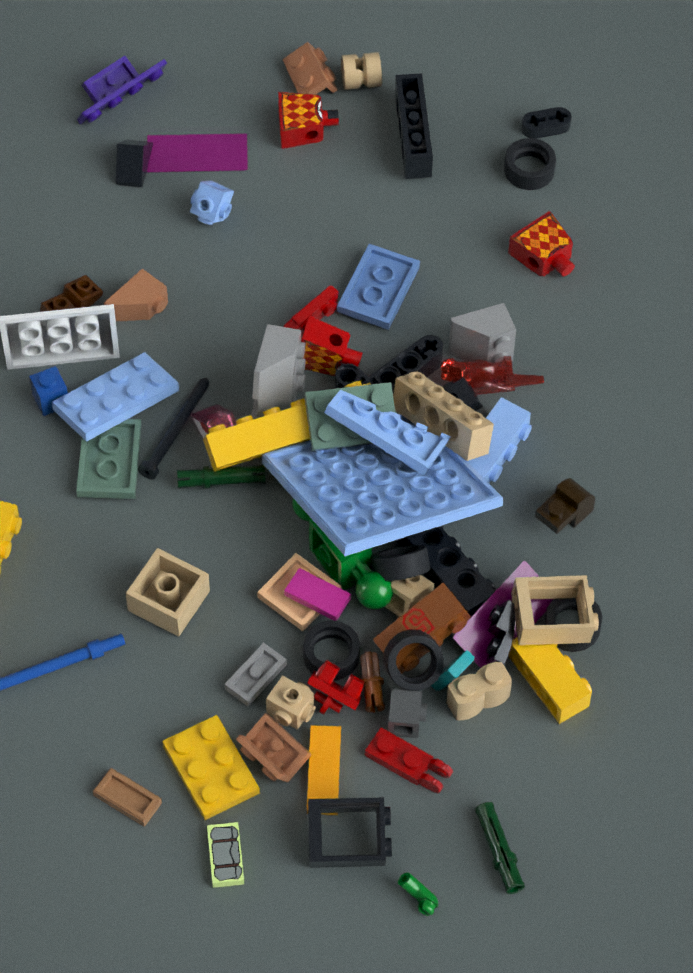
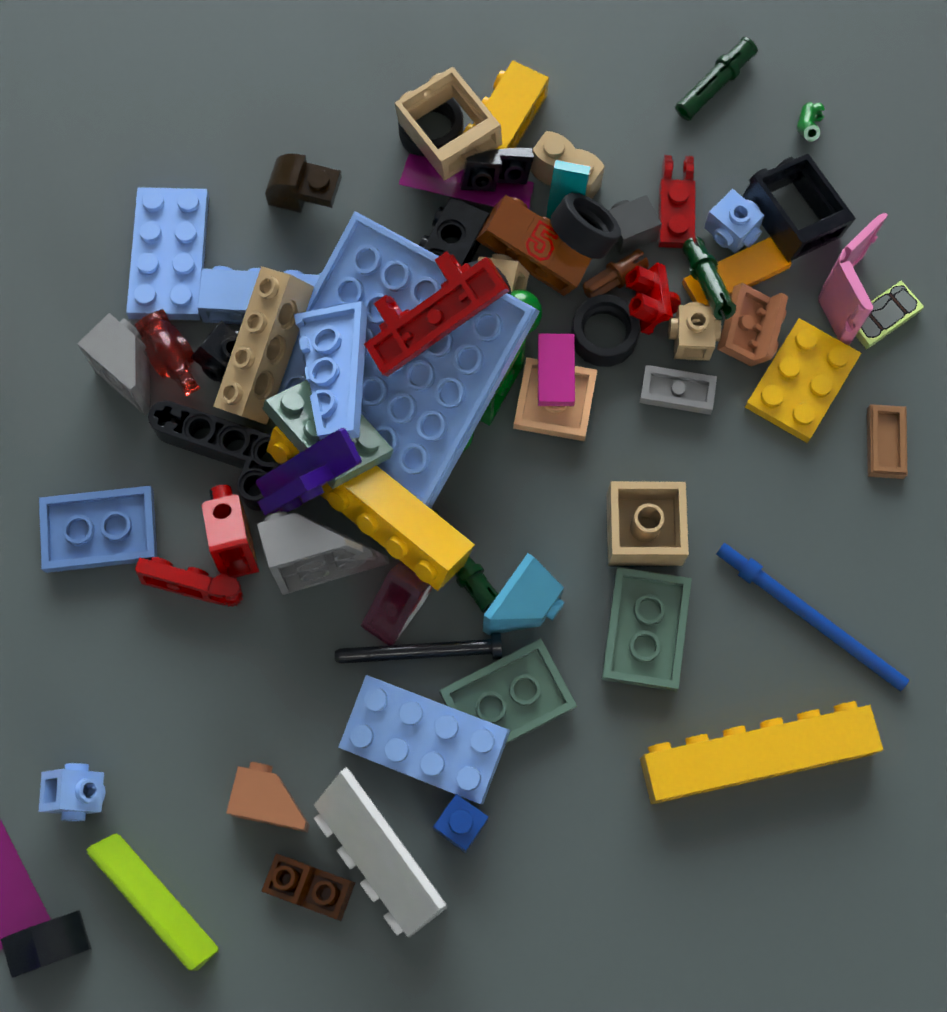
camera: 120 degrees left, 15 degrees up
(97, 561) = (646, 629): none -> sand green plate
(119, 218) = (153, 901): none -> lime slope
(166, 492) = (525, 599): none -> medium azure slope
(253, 808) = (843, 293): none -> bright pink piece
(312, 371) = (307, 473): none -> dark purple bracket
(335, 734) = (704, 269): none -> dark green pin
(362, 778) = (734, 222): none -> light blue brick
(382, 508) = (415, 330): none -> red hinge
(566, 409) = (167, 252): none -> light blue plate

